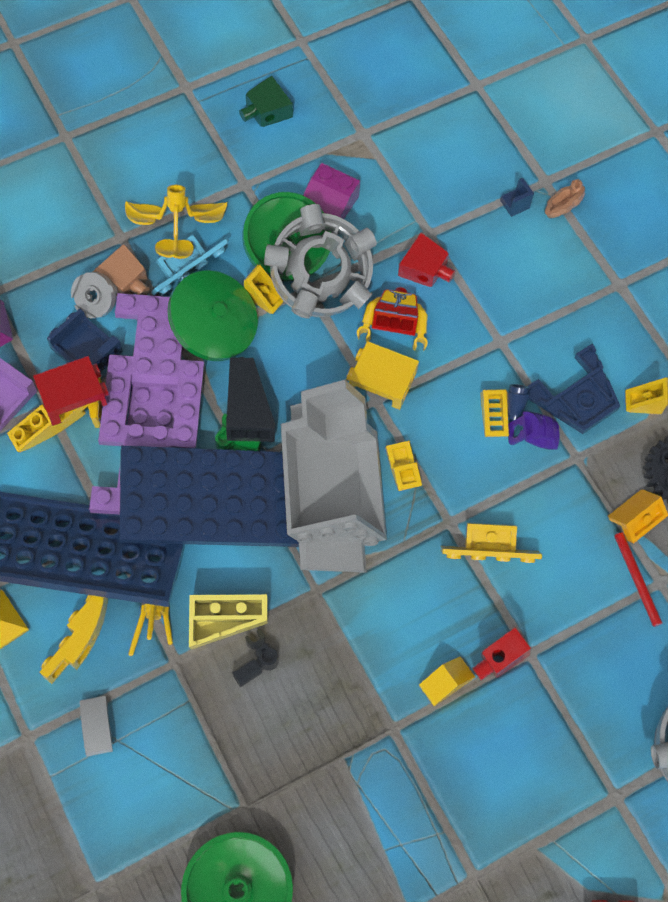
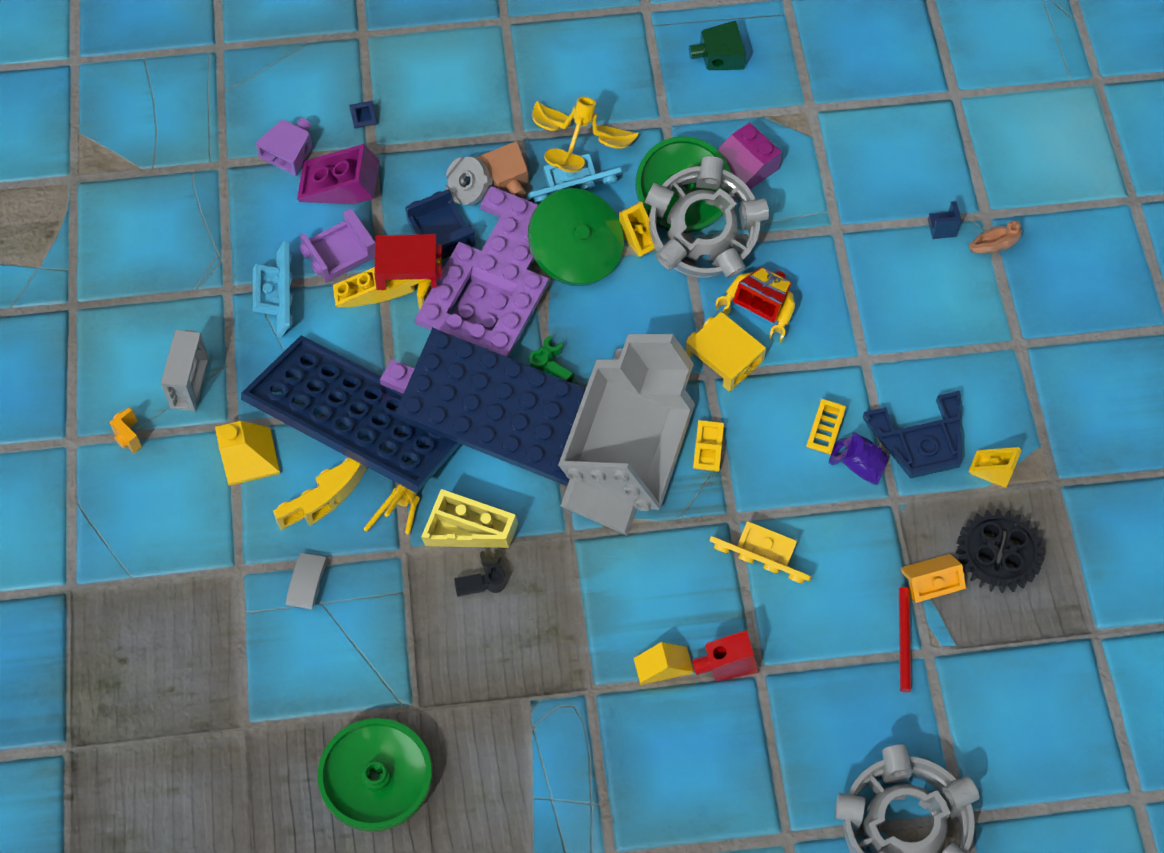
camera: 25 degrees right, 5 degrees down
(247, 405) = (572, 333): black slope -> none
(425, 263) = (817, 255): red torso -> none
(516, 400) = (852, 420): dark blue cone -> none

